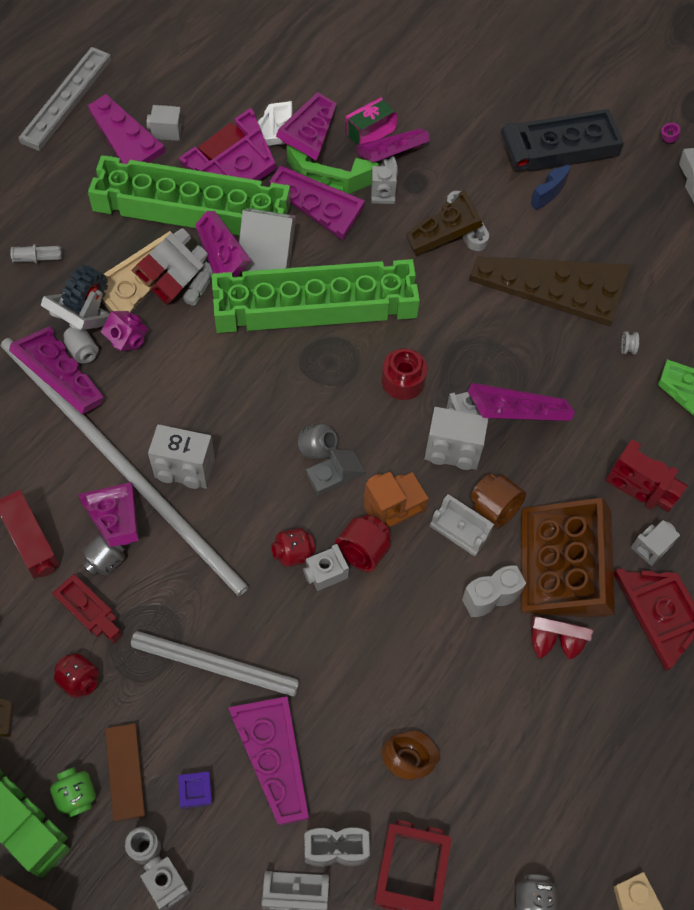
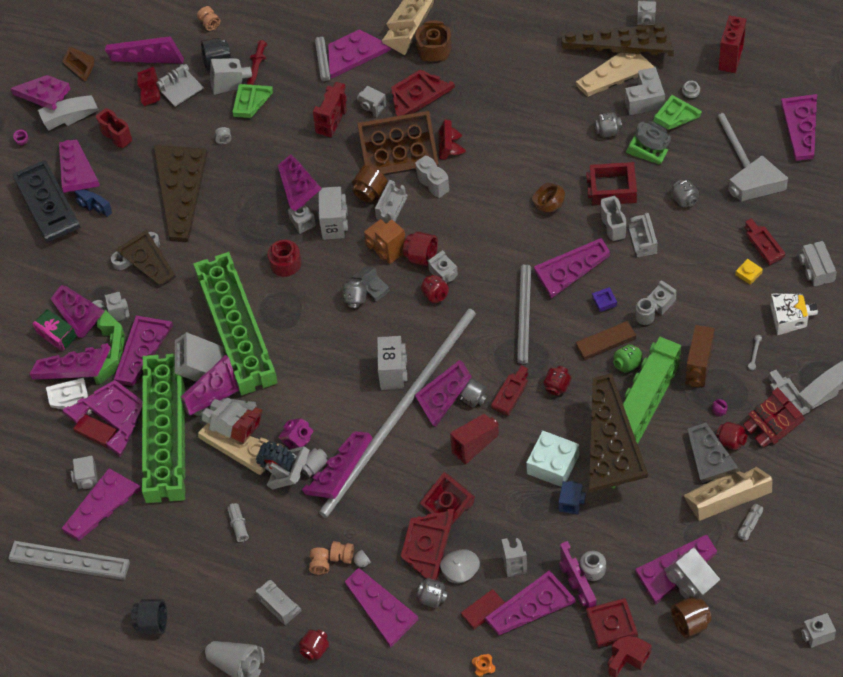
camera: 95 degrees left, 5 degrees down
(598, 170) = (75, 168): none -> magenta wing
(662, 221) = (114, 128): none -> dark red brick

